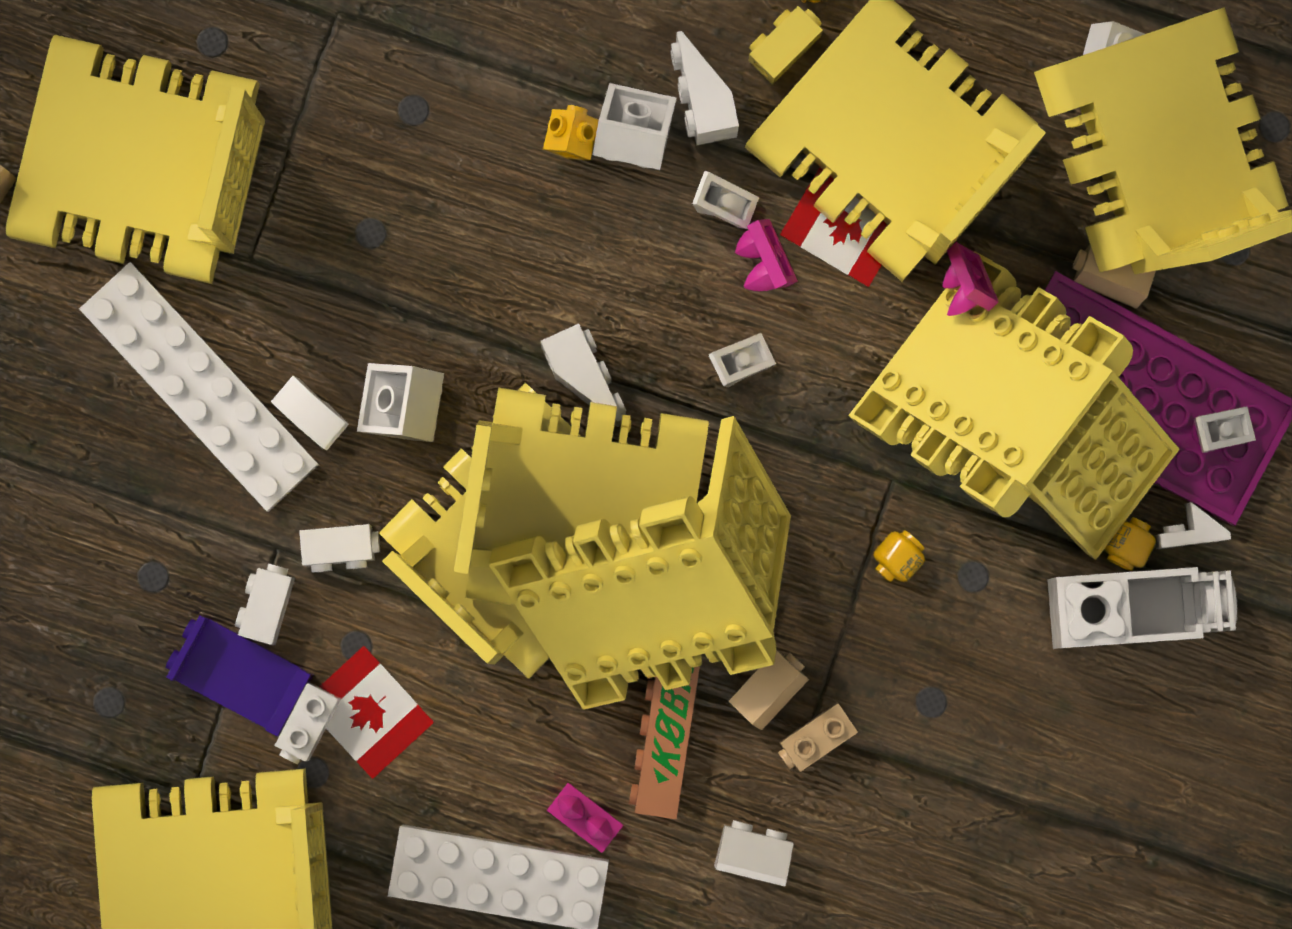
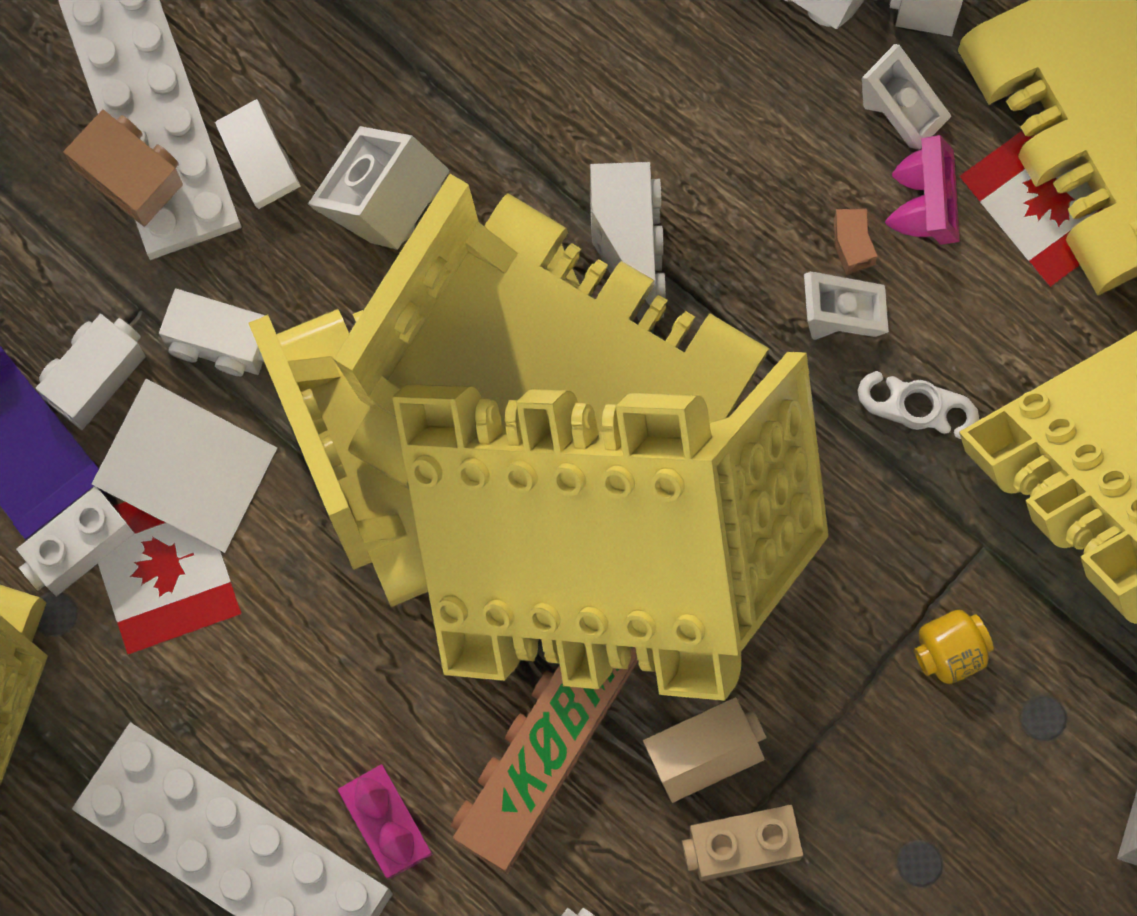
camera: 30 degrees right, 10 degrees down
(229, 462) = (124, 166): none -> medium nougat brick
(356, 643) = (184, 465): none -> white sticker
(728, 310) = (853, 240): none -> nougat piece
(799, 412) = (895, 410): none -> white piece

